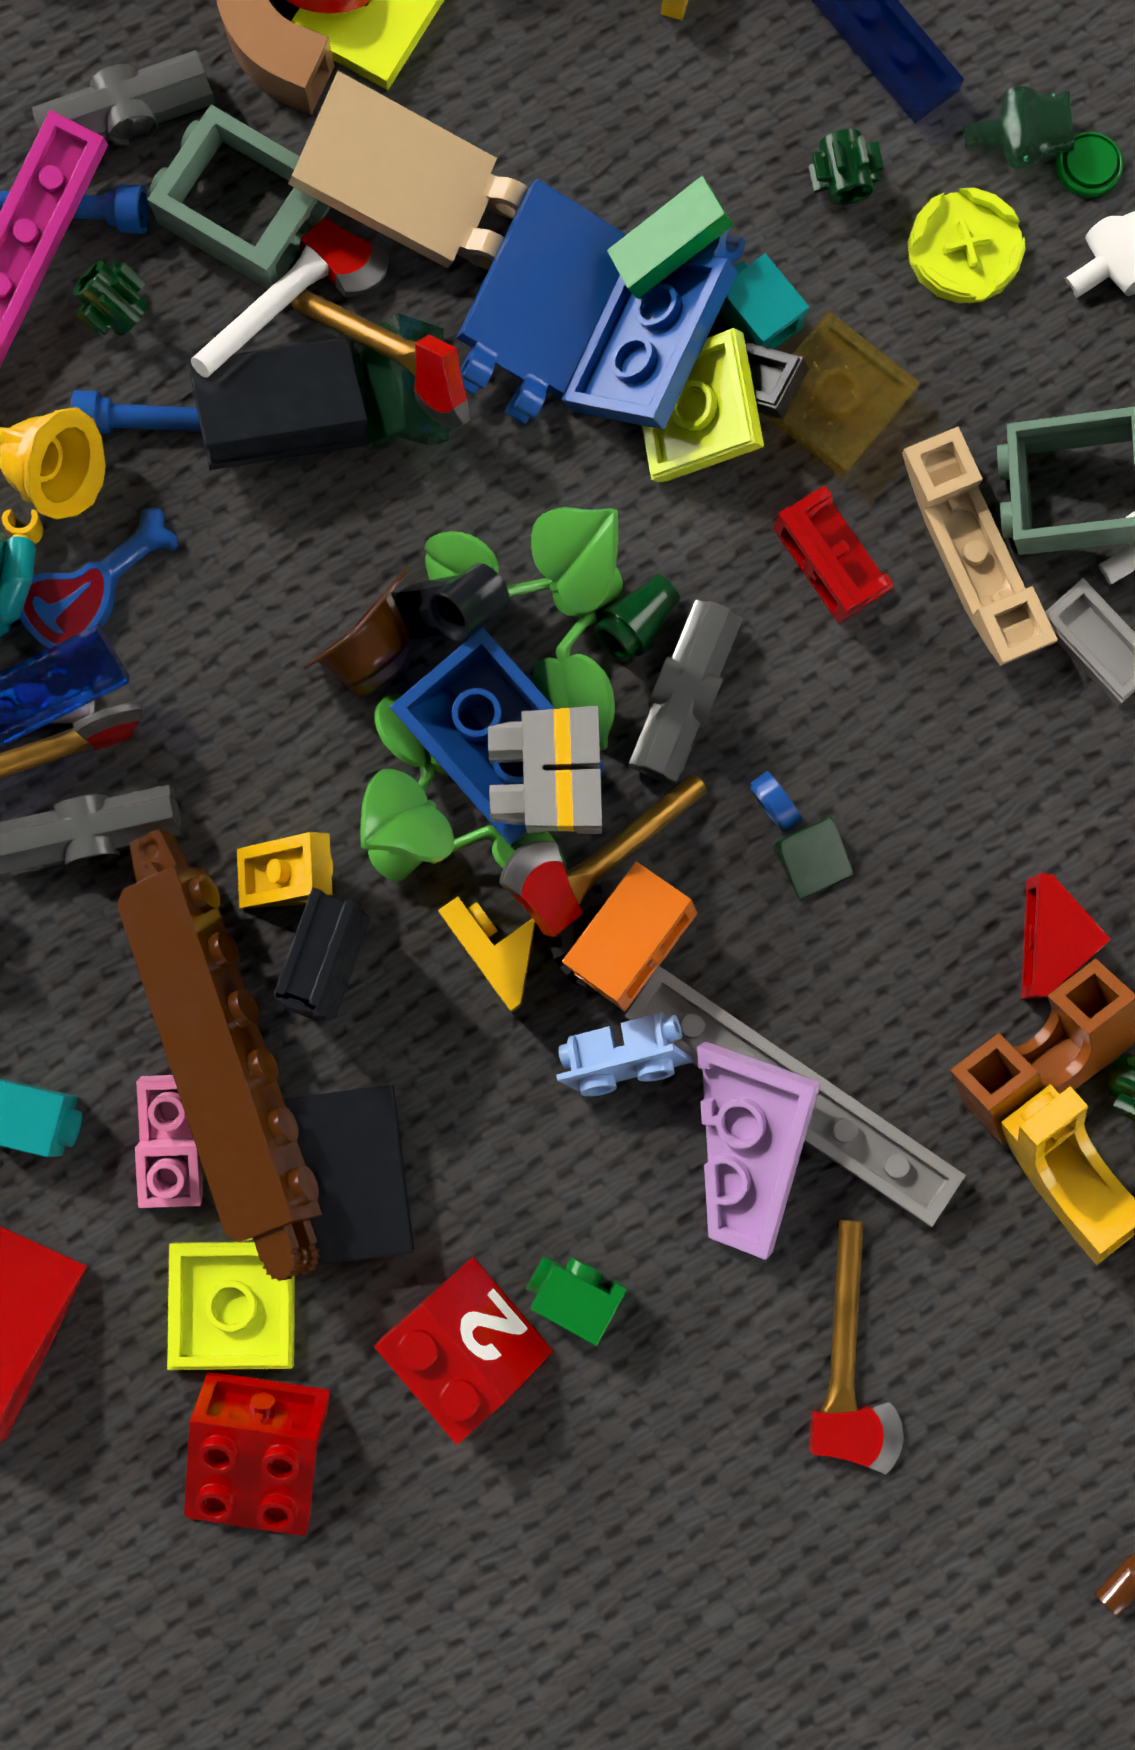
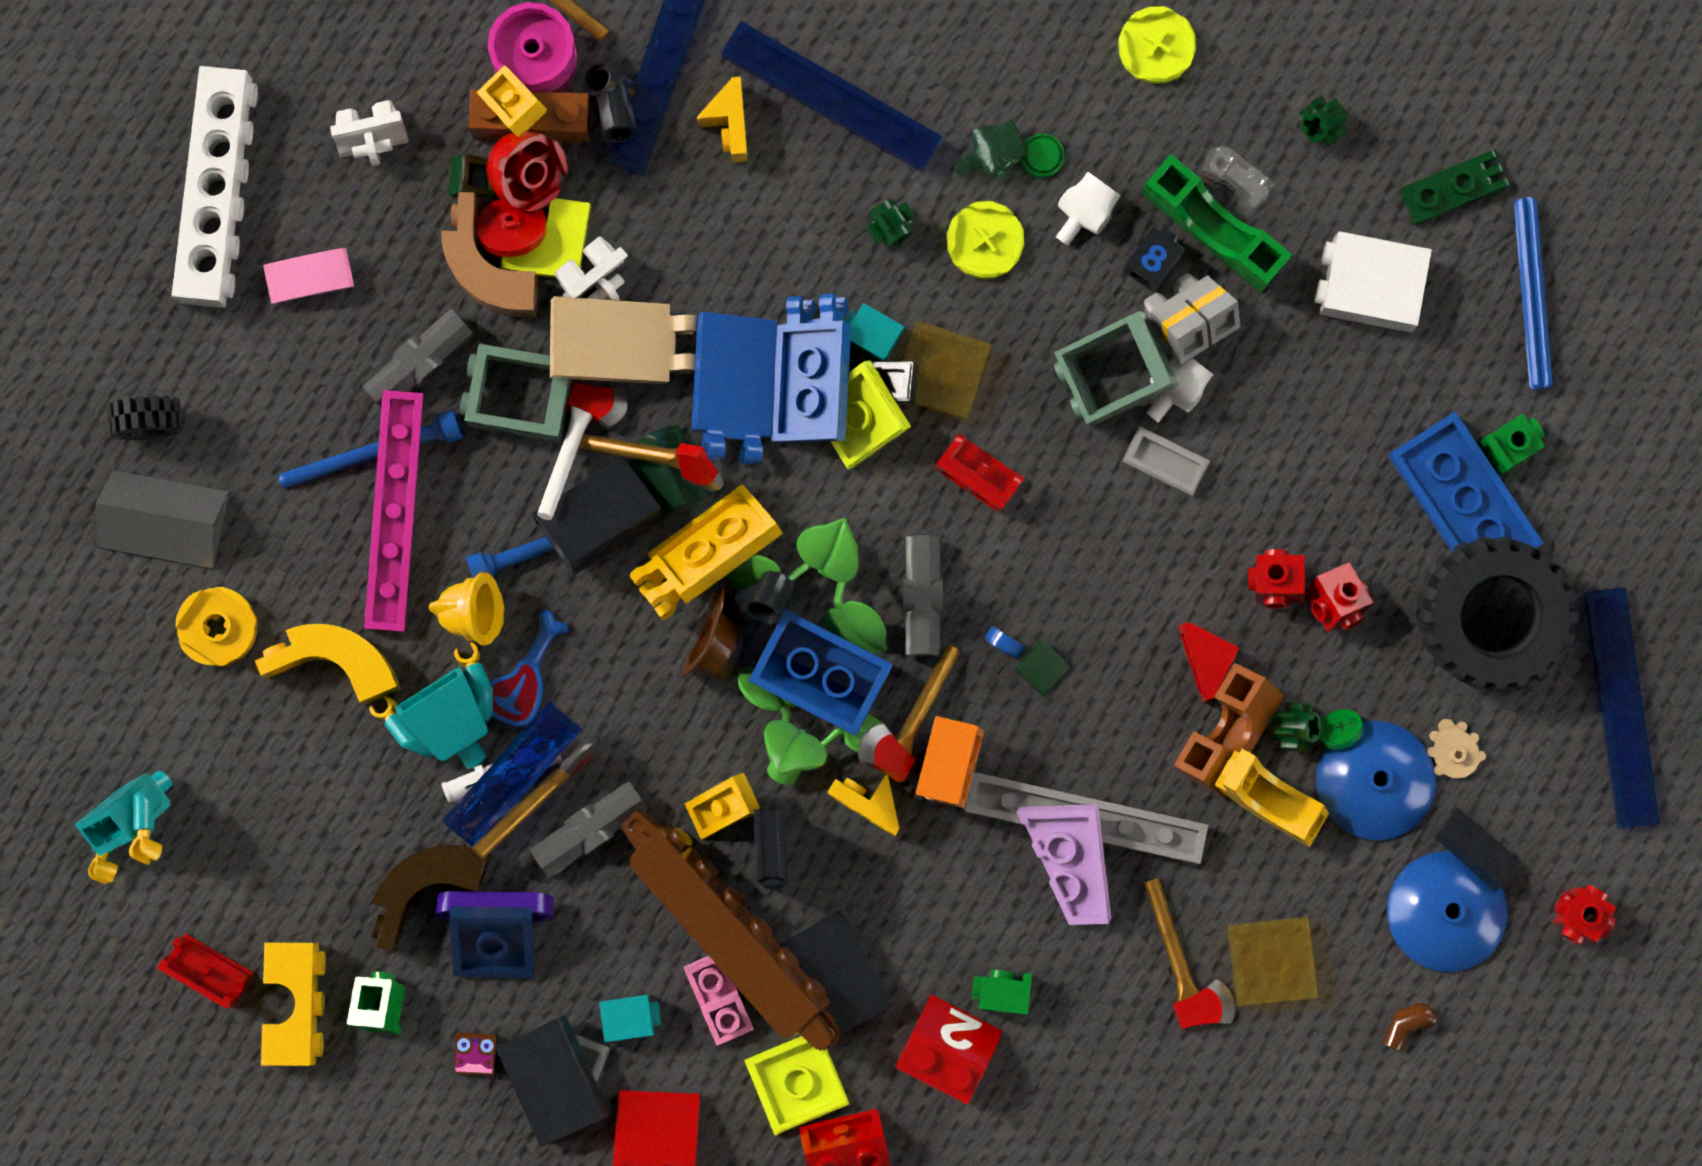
camera: 20 degrees left, 0 degrees up
(110, 298) = (463, 490): dark green gear -> none
(406, 508) = (705, 551): none -> yellow tile
(417, 83) = (605, 261): none -> white hips
(558, 768) = (870, 699): light grey hips -> none
(633, 621) = (875, 561): dark green cone -> none
(646, 1054) = (987, 829): light blue hinge -> none
(670, 237) = (800, 317): tile -> none
(973, 549) = (1066, 435): tan slope -> none
(981, 1410) = (1272, 961): none -> clear yellow plate

